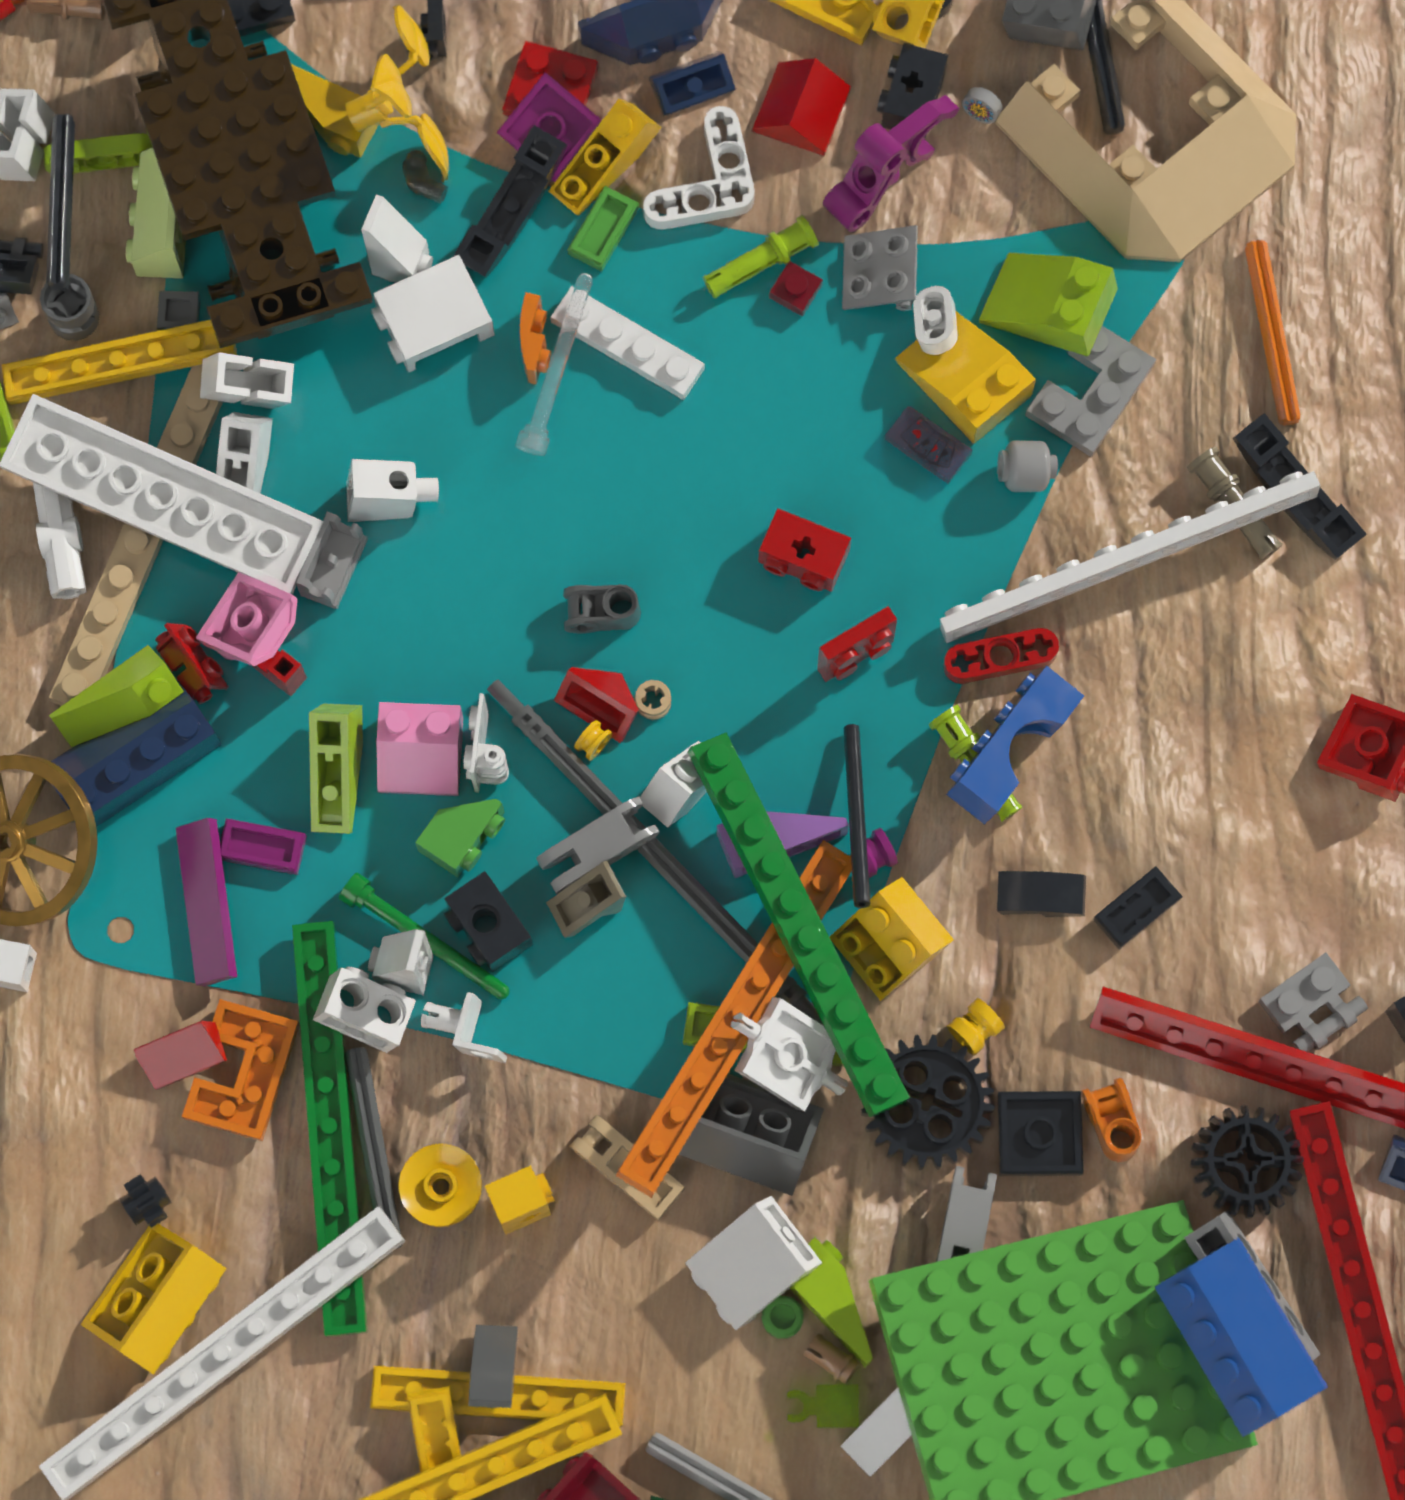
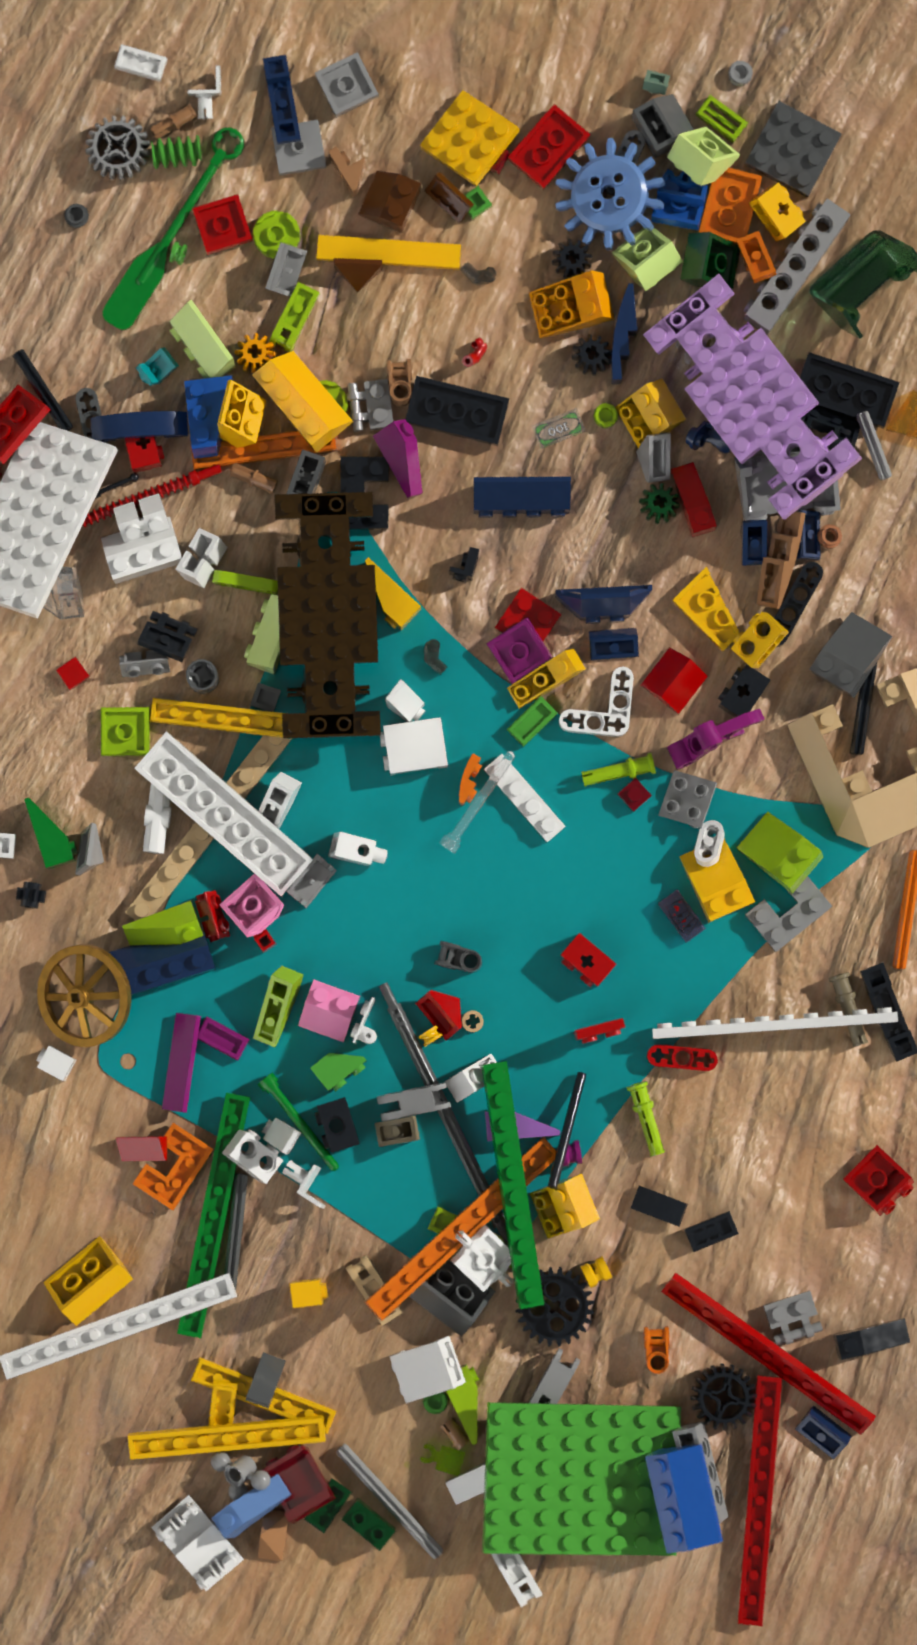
camera: 15 degrees right, 10 degrees up
(60, 202) = (215, 613): black axle -> none
(145, 1200) = (98, 1225): black gear -> none
(260, 385) = (299, 759): white piece -> none
(389, 91) = (426, 614): yellow plant -> none
(435, 1164) = (253, 1271): yellow dish -> none
(513, 203) = (481, 691): black slope -> none
(982, 105) = (782, 714): light grey tile -> none
(989, 778) = (647, 1134): blue arch -> none
(1026, 466) = (733, 949): light grey head -> none
(1040, 1133) = (612, 1344): black plate -> none

